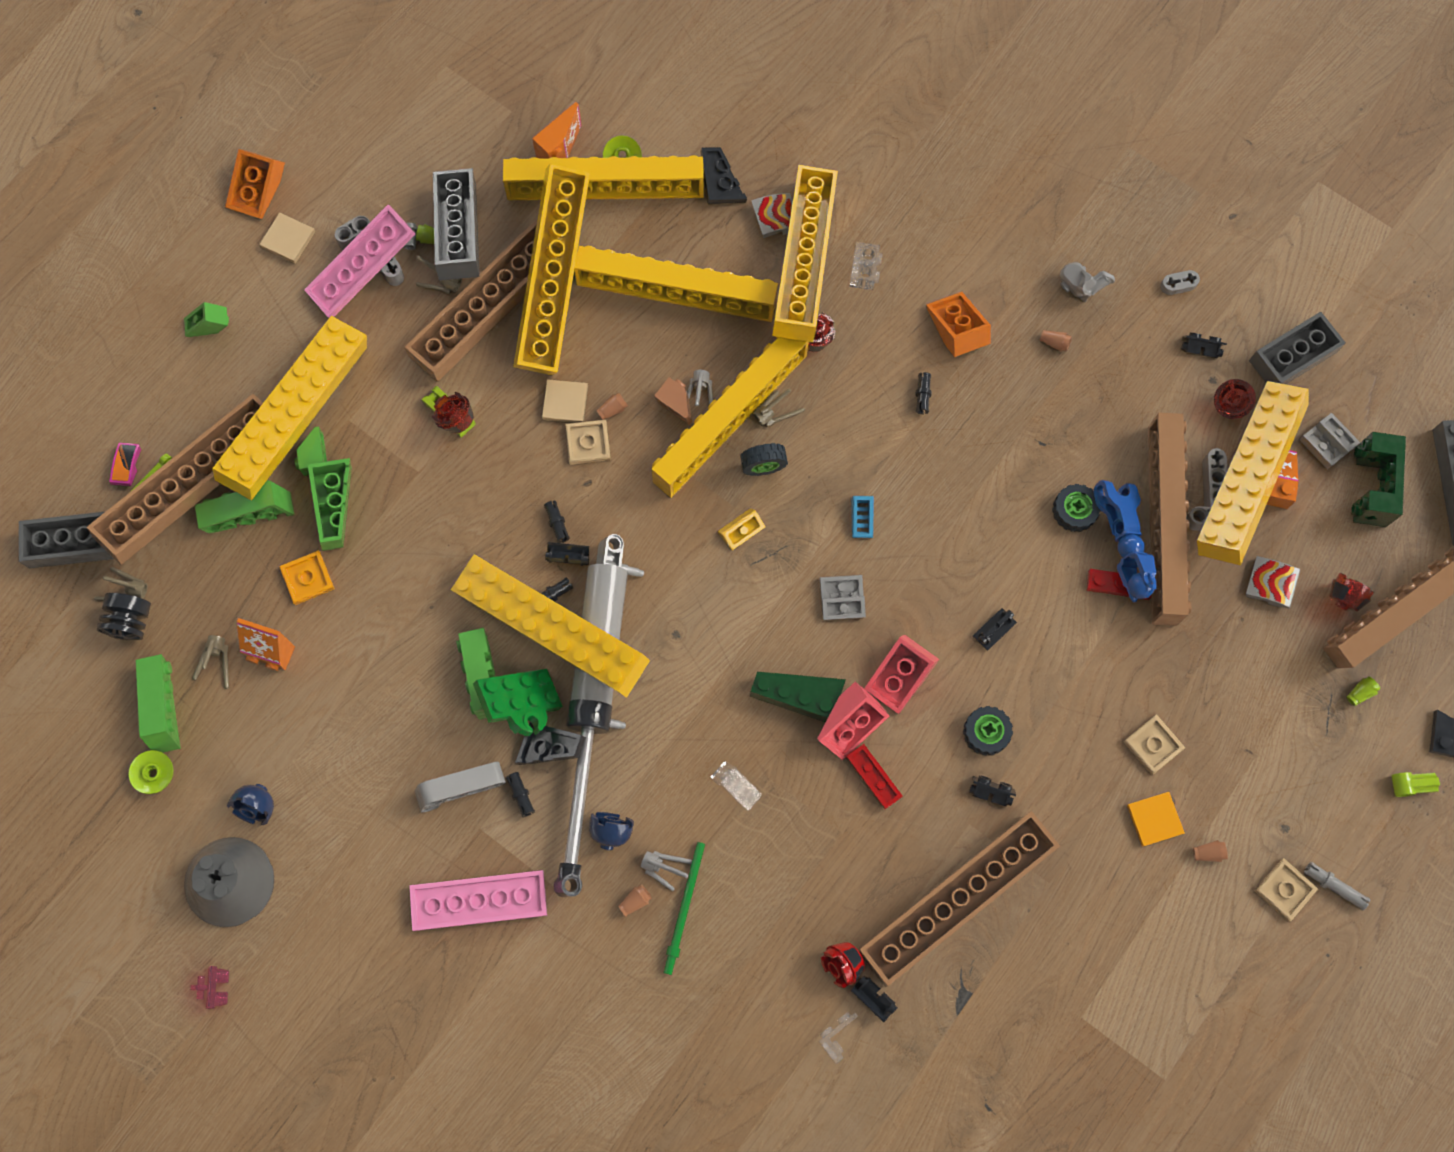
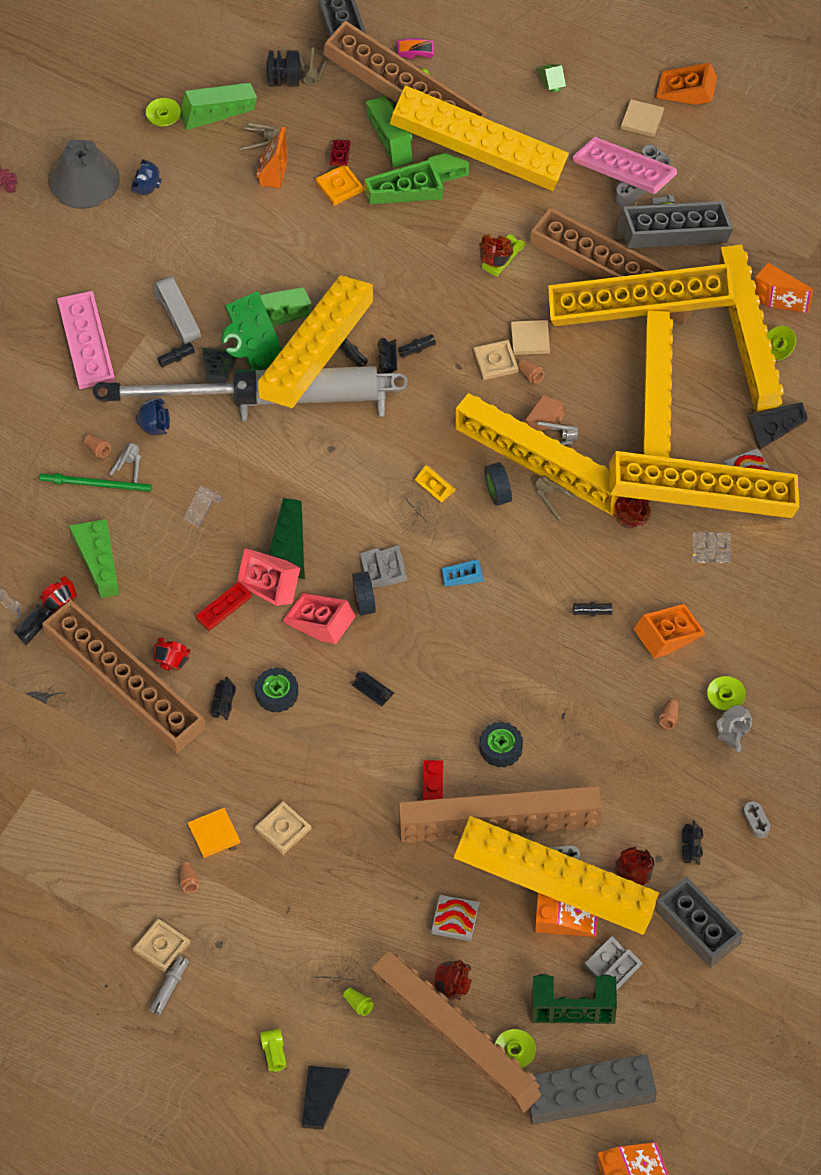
camera: 85 degrees right, 15 degrees down
(263, 570) = (340, 152): none -> dark red slope
(789, 913) = (96, 552): none -> bright green wedge
(886, 619) = (363, 593): none -> black wheel
(937, 842) = (170, 654): none -> red cone
(1039, 275) = (726, 686): none -> lime dish
(1125, 526) = (467, 780): blue piece -> none
(1428, 539) = (519, 1041): none -> lime dish

